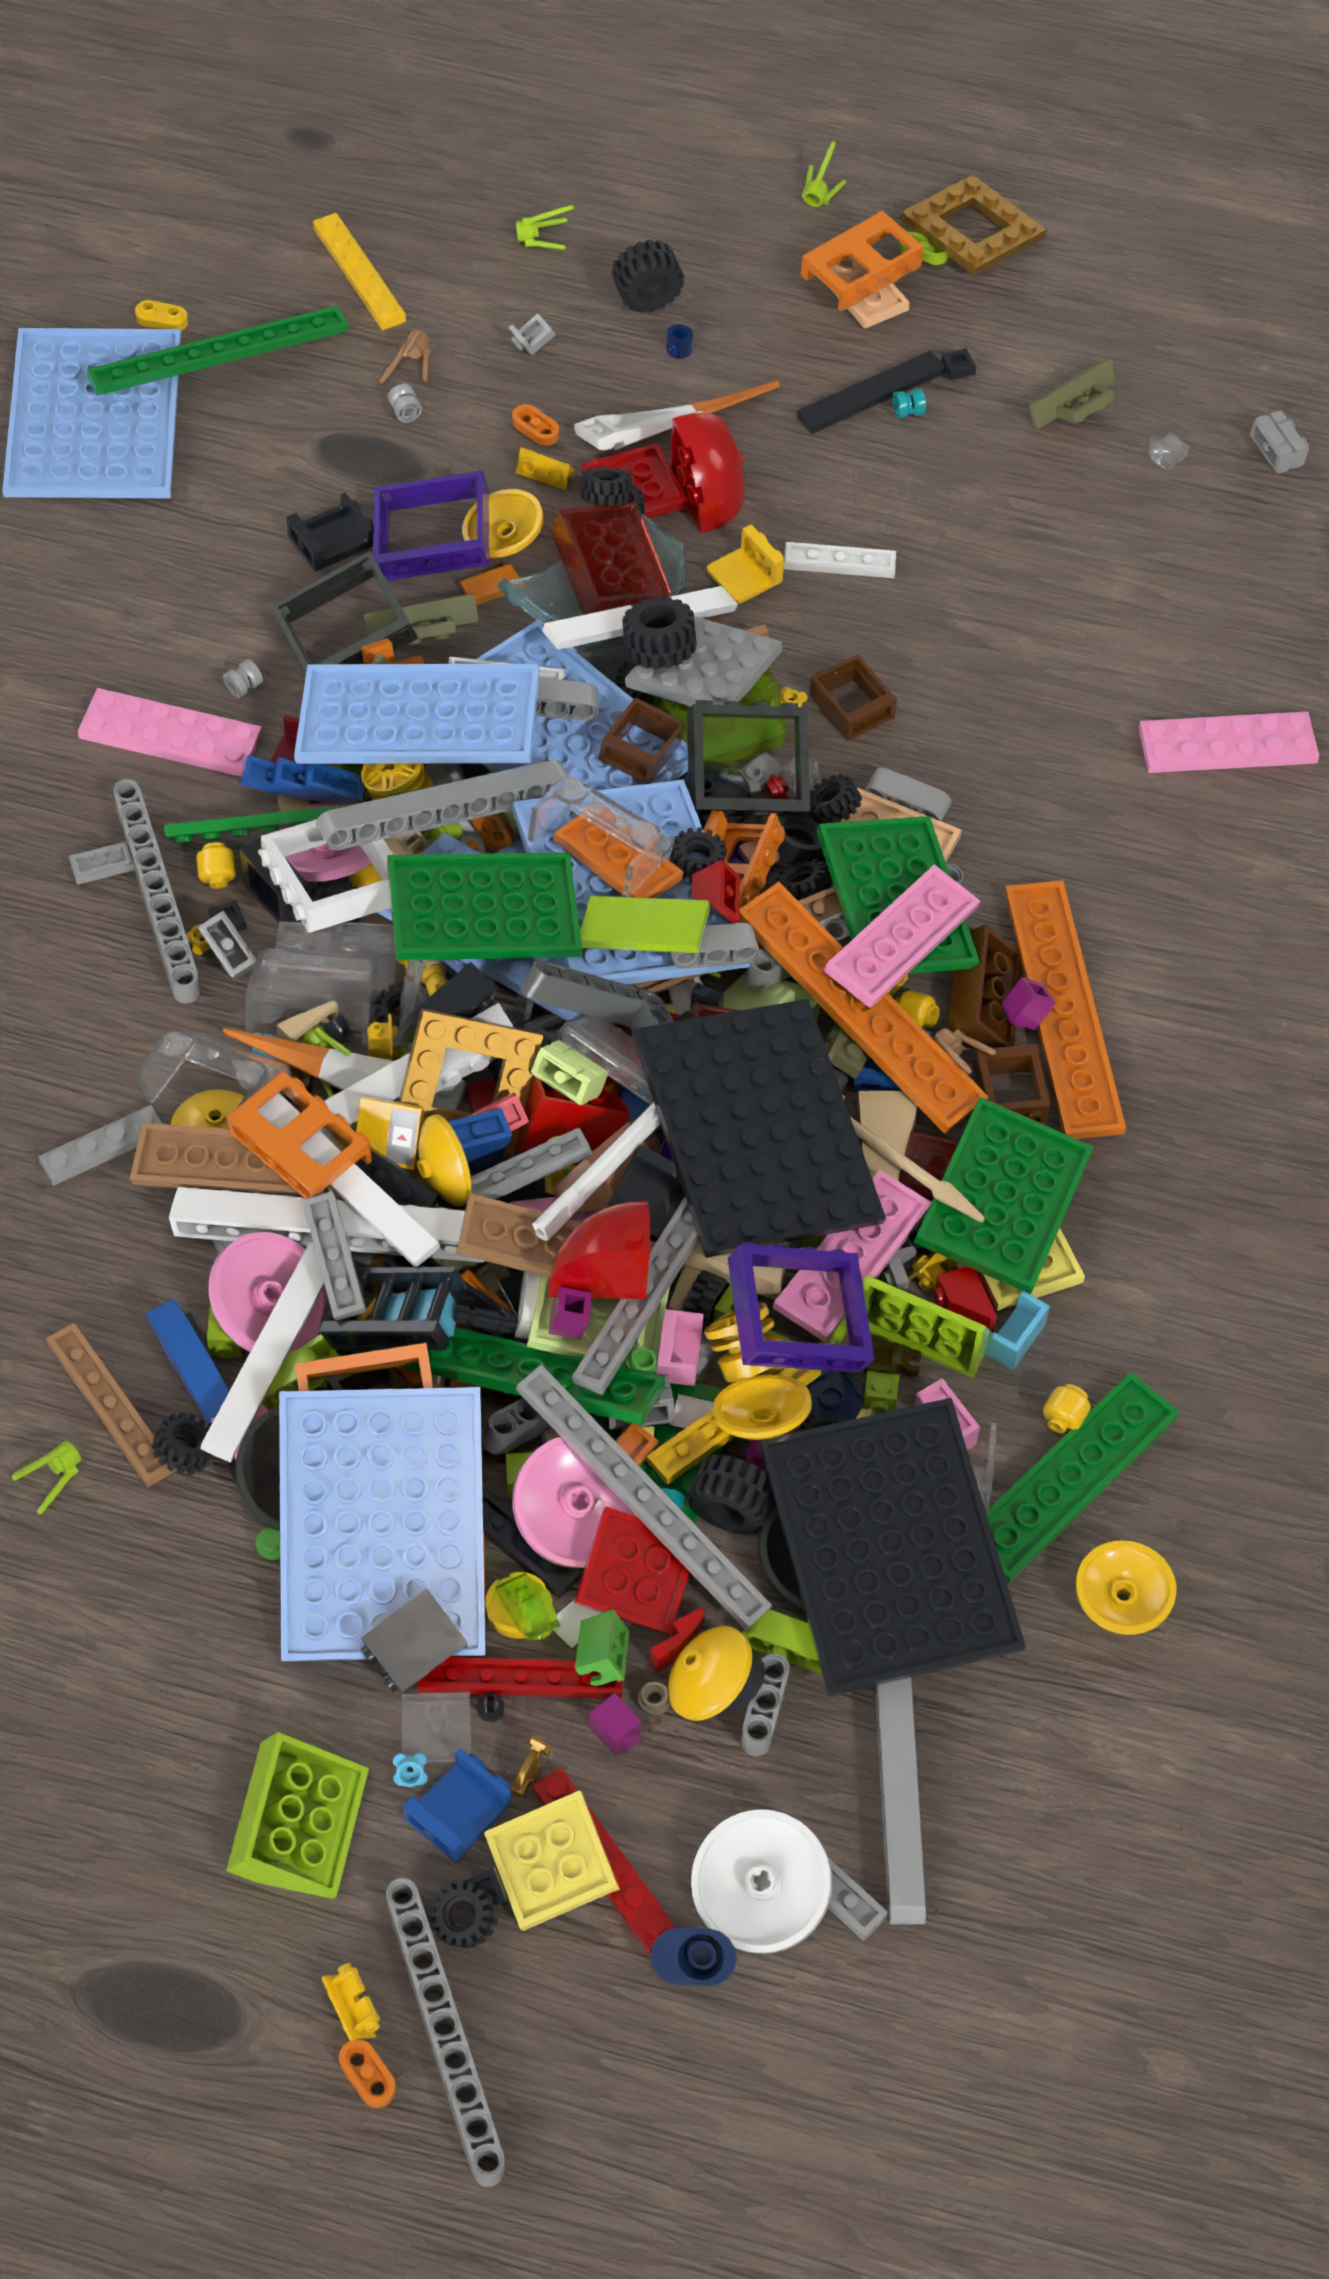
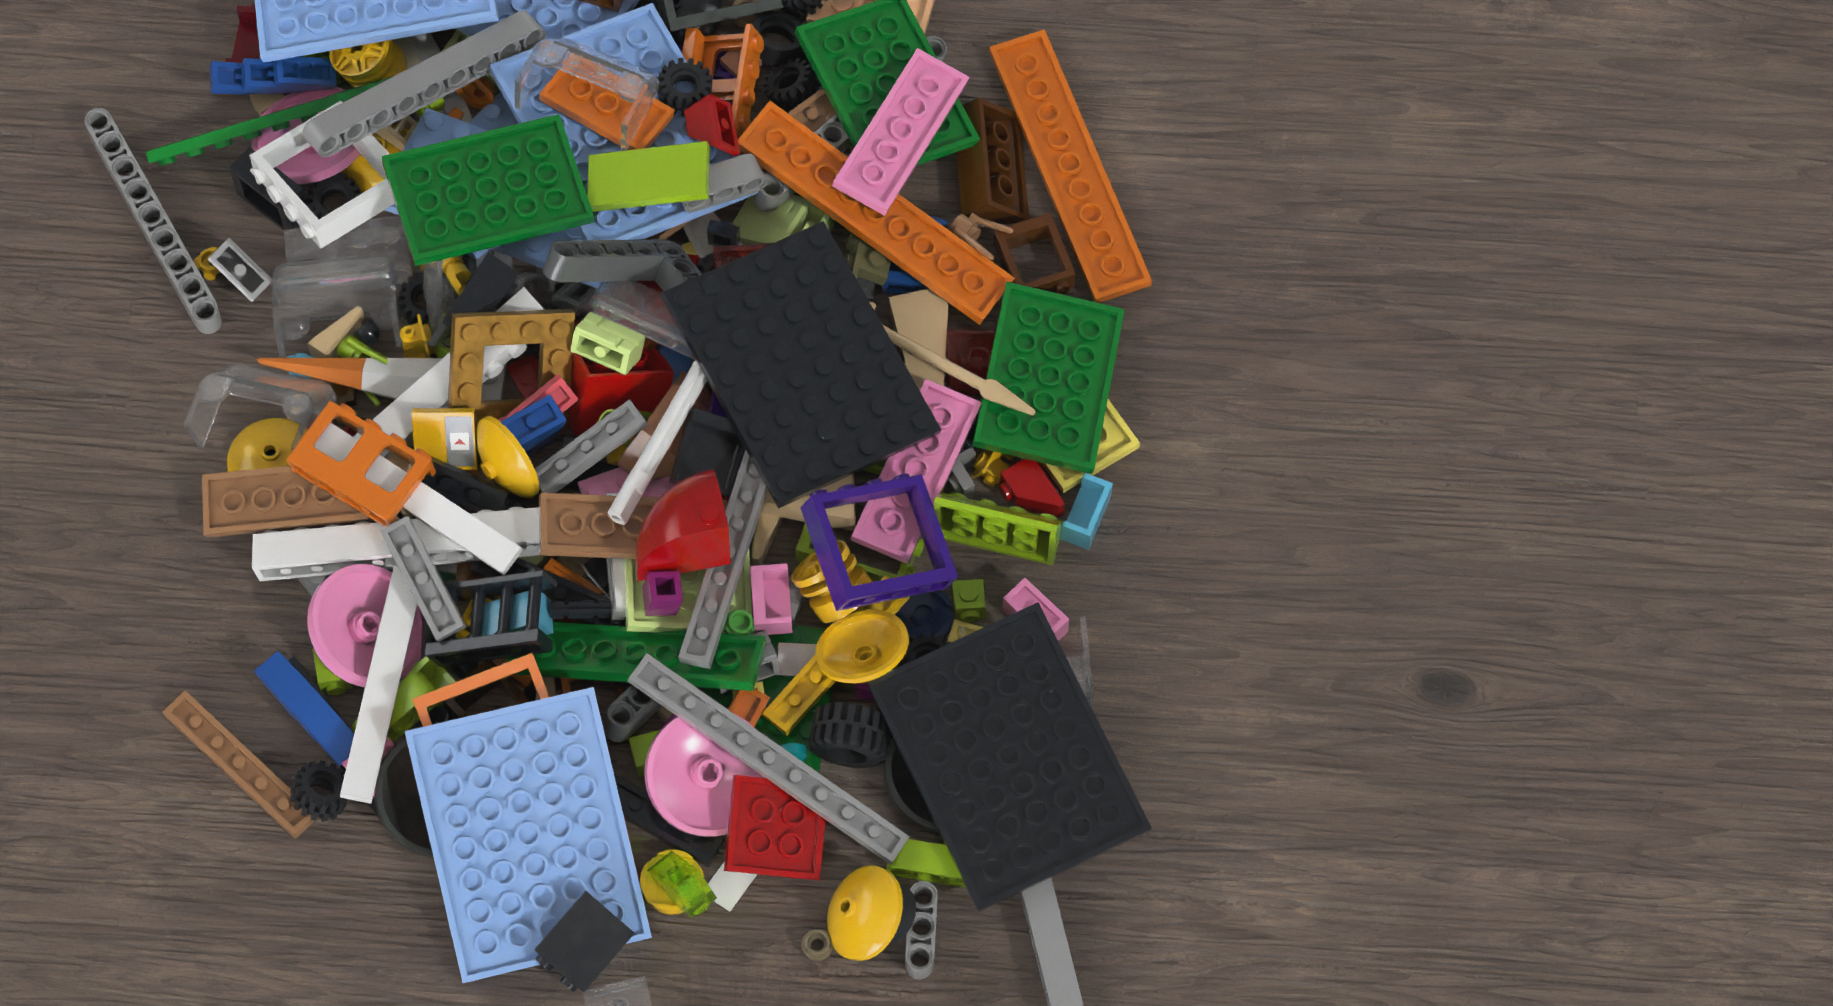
camera: 10 degrees left, 10 degrees up
(60, 1459) = (205, 829): lime plant -> none
(96, 1146) = (162, 502): light grey plate -> none
(101, 863) = (91, 201): light grey plate -> none
(169, 732) = (124, 43): bright pink plate -> none
(216, 865) = (206, 181): yellow head -> none
(233, 913) = (233, 229): black tile -> none
(268, 1543) = (424, 870): bright green plate -> none
(483, 1704) = (660, 985): black hinge -> none
(515, 1678) = (695, 951): red plate -> none
(602, 1647) = (760, 909): bright green hinge -> none
(615, 1724) = (787, 979): magenta brick -> none
(682, 1633) = (831, 877): red slope -> none
(705, 1296) = (784, 541): black tyre -> none
(889, 1359) = (969, 564): dark brown plate -> none
(920, 1007) = (929, 197): yellow head -> none
(1028, 1003) = (1035, 171): magenta brick -> none
(1066, 1408) = (1146, 581): yellow head -> none
(1076, 1472) = (1167, 641): green plate -> none
(1131, 1571) = (1236, 729): yellow dish -> none

